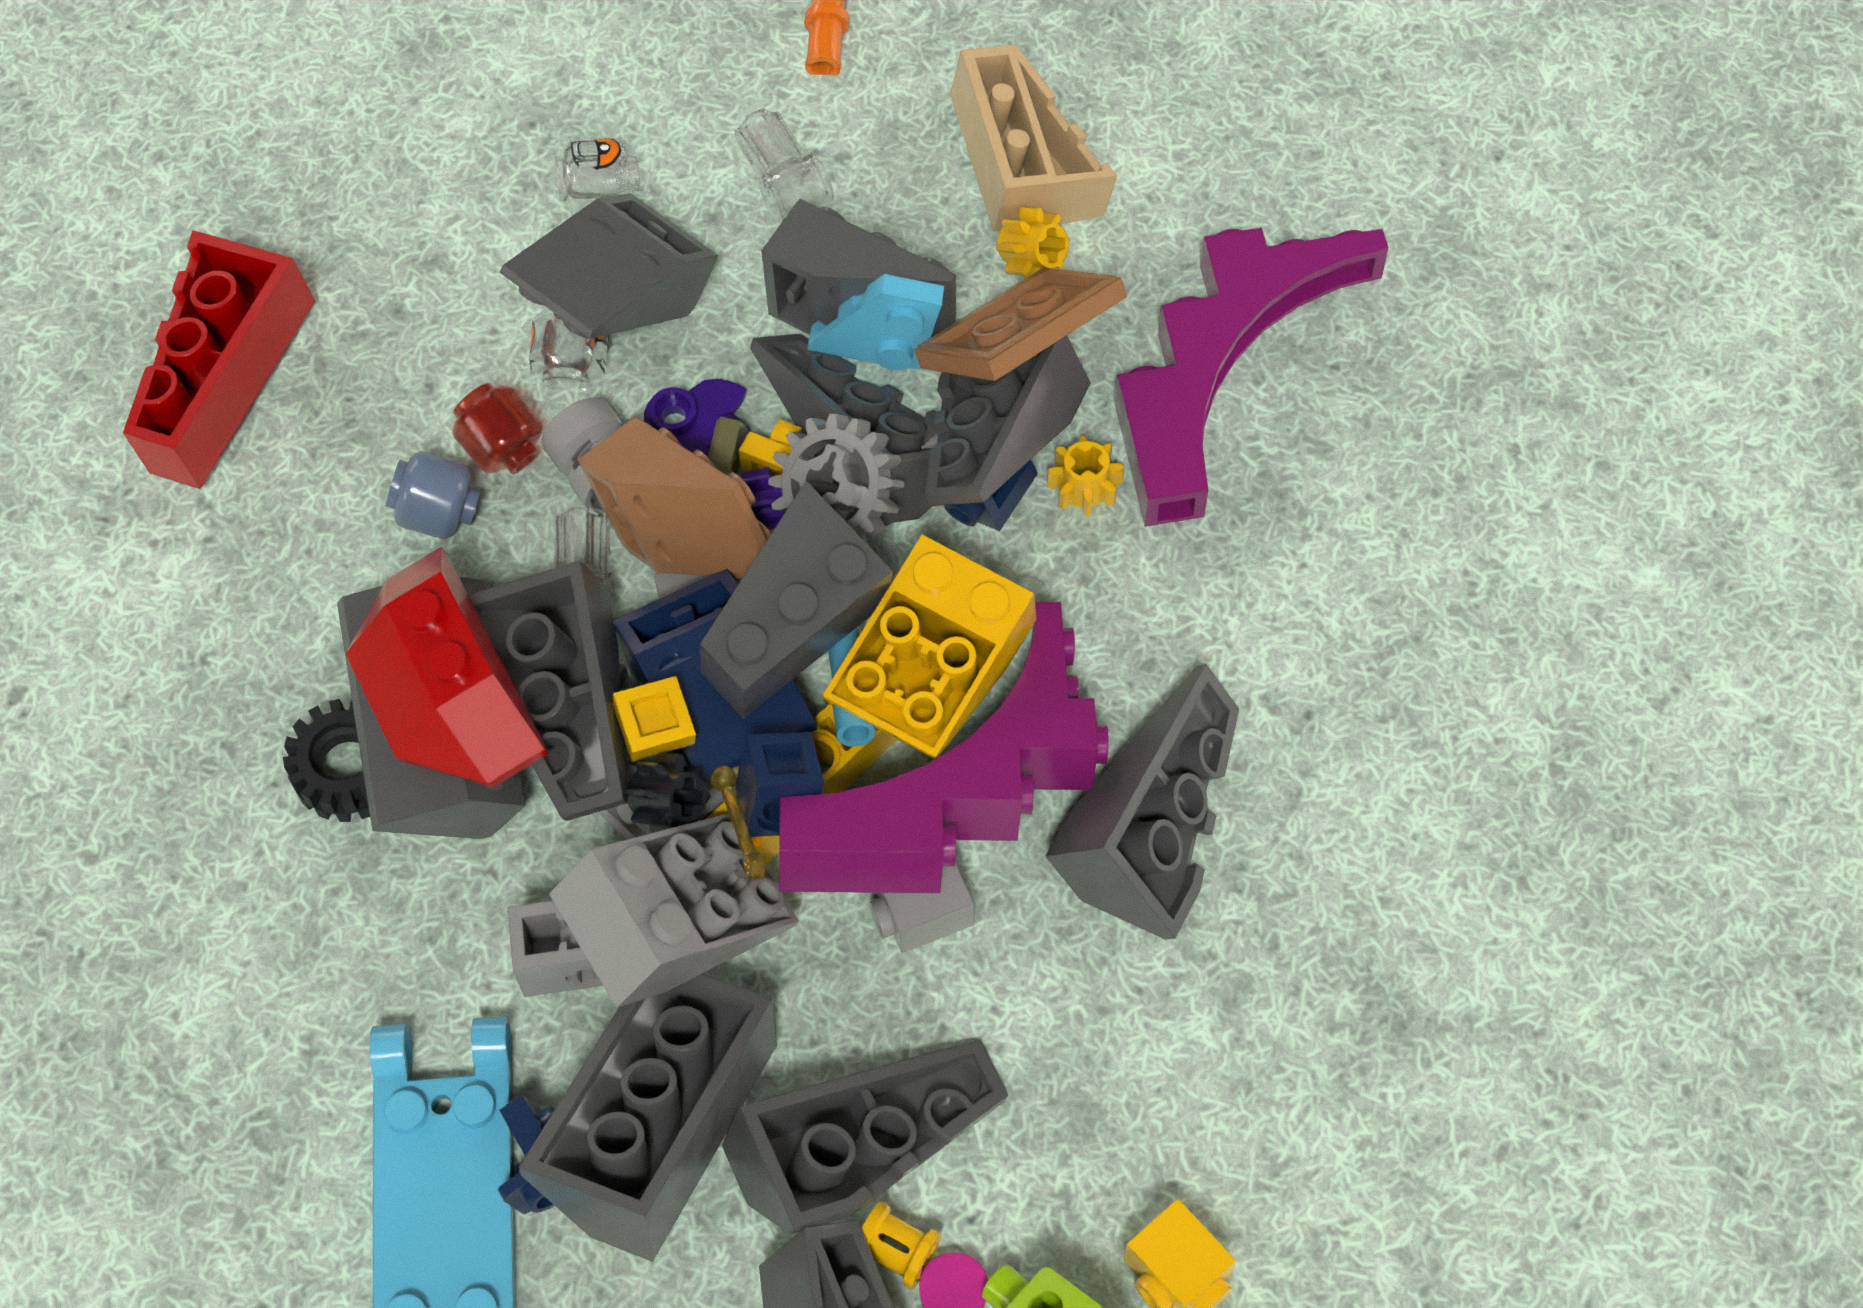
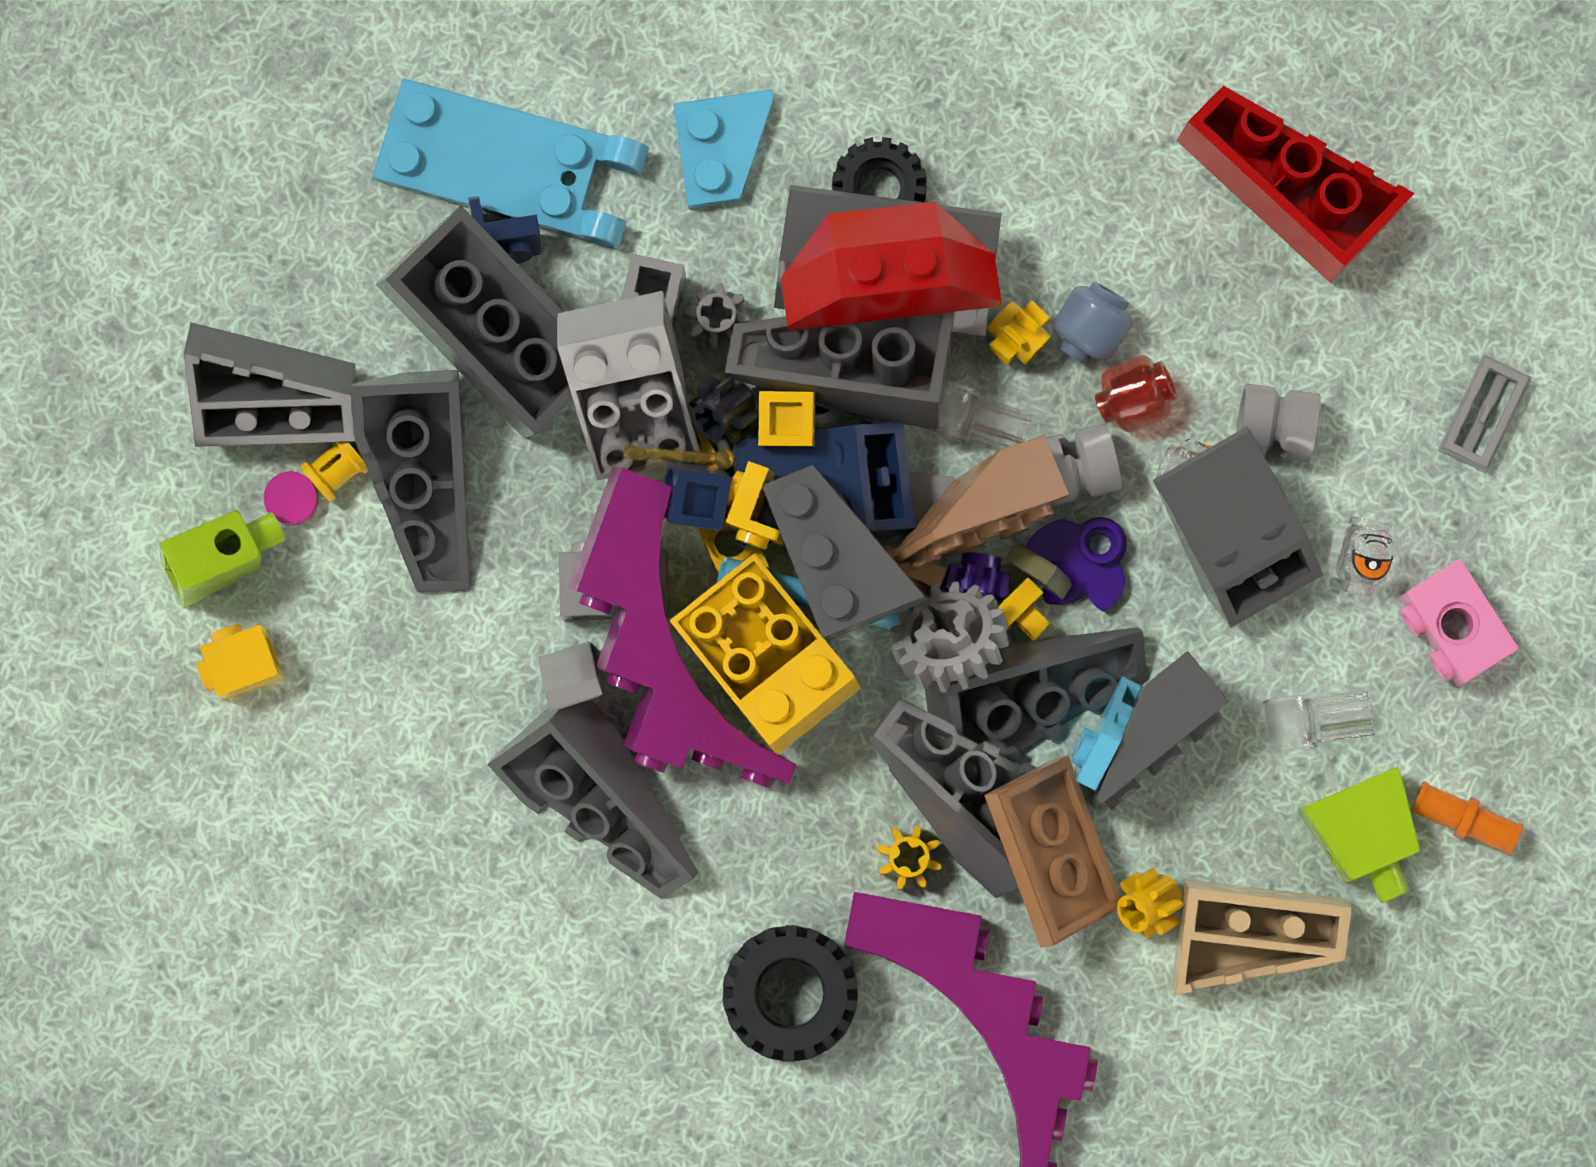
camera: 115 degrees right, 20 degrees up
(346, 954) = (719, 144): none -> medium azure wing
(408, 139) = (1465, 453): none -> light grey tile
(473, 552) = (1019, 332): none -> yellow gear
(481, 300) = (1281, 422): none -> light grey wheel
(540, 863) = (706, 306): none -> light grey gear
(634, 79) = (1456, 592): none -> bright pink brick
(767, 714) = (748, 501): none -> yellow bracket
(874, 91) = (1367, 831): none -> lime torso
(1038, 867) = (570, 676): none -> light grey tile
(1272, 572) = (742, 1000): none -> black tyre

